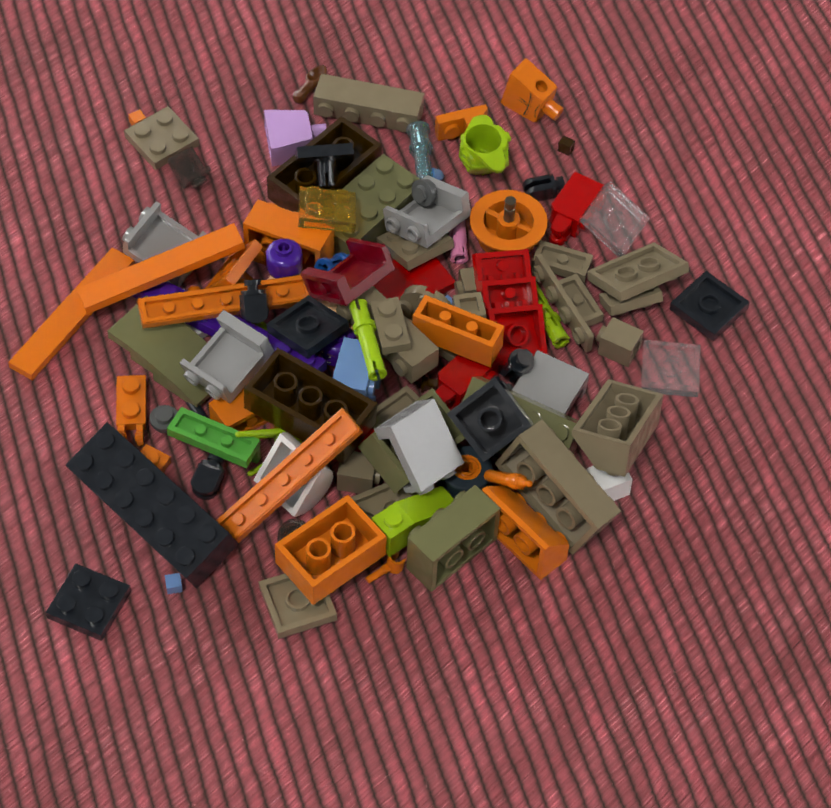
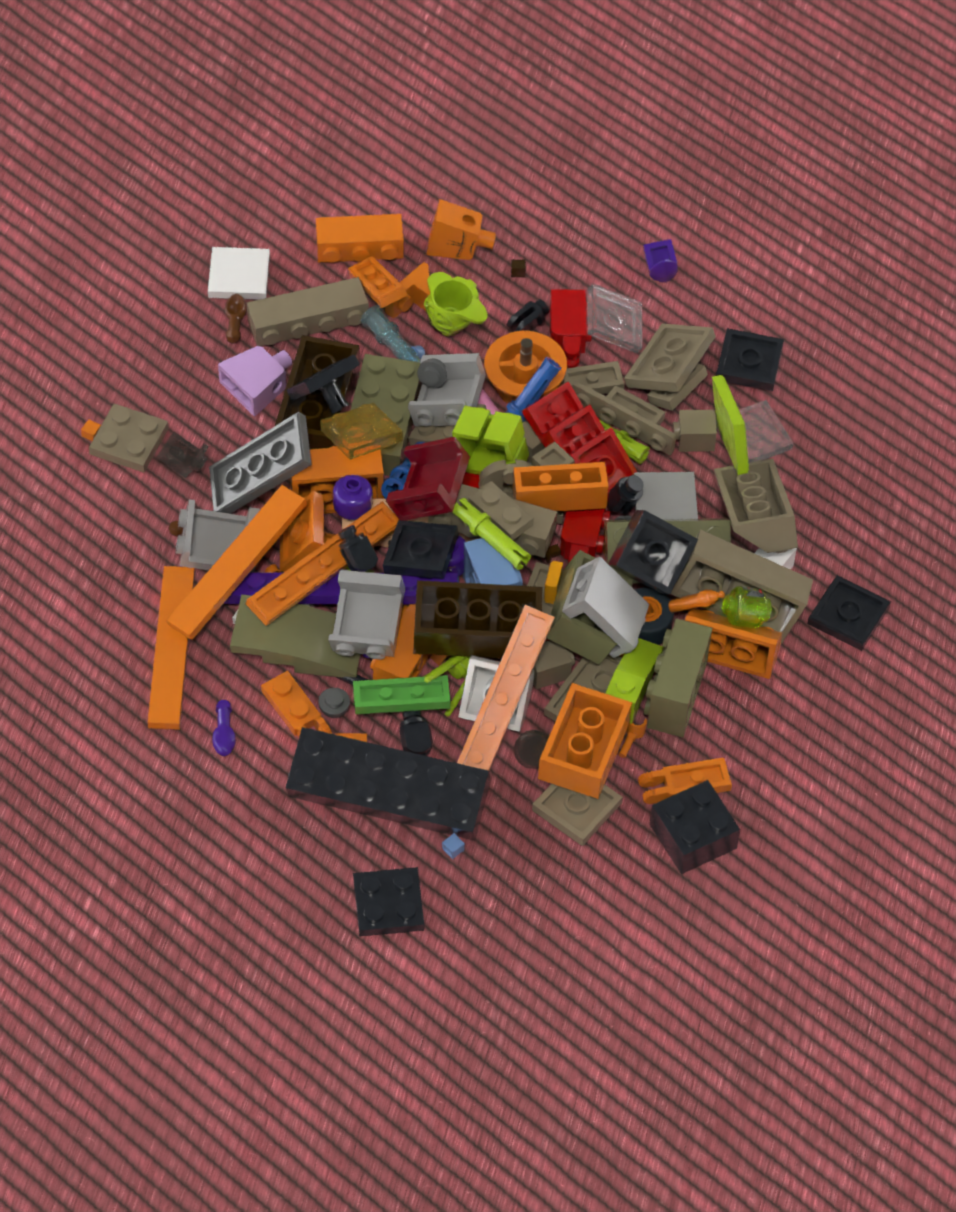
camera: 30 degrees left, 0 degrees up
(61, 402) = (223, 736): none -> dark purple piece
(233, 200) = (260, 464): none -> dark grey tile
(339, 51) = (238, 272): none -> white tile
(379, 671) = (694, 826): none -> black brick
(403, 401) = (552, 581): none -> light orange tile
(403, 629) = (684, 776): none -> orange hinge
(428, 263) = (490, 437): none -> lime piece
(437, 103) = (378, 282): none -> orange tile
(452, 65) = (359, 238): none -> orange brick
(493, 244) = (535, 387): none -> blue pin
(542, 505) = (747, 607): none -> clear neon green head
(640, 347) = (730, 425): none -> lime tile
(648, 558) = (849, 612): none -> black tile
(690, 191) = (661, 260): none -> dark purple plate

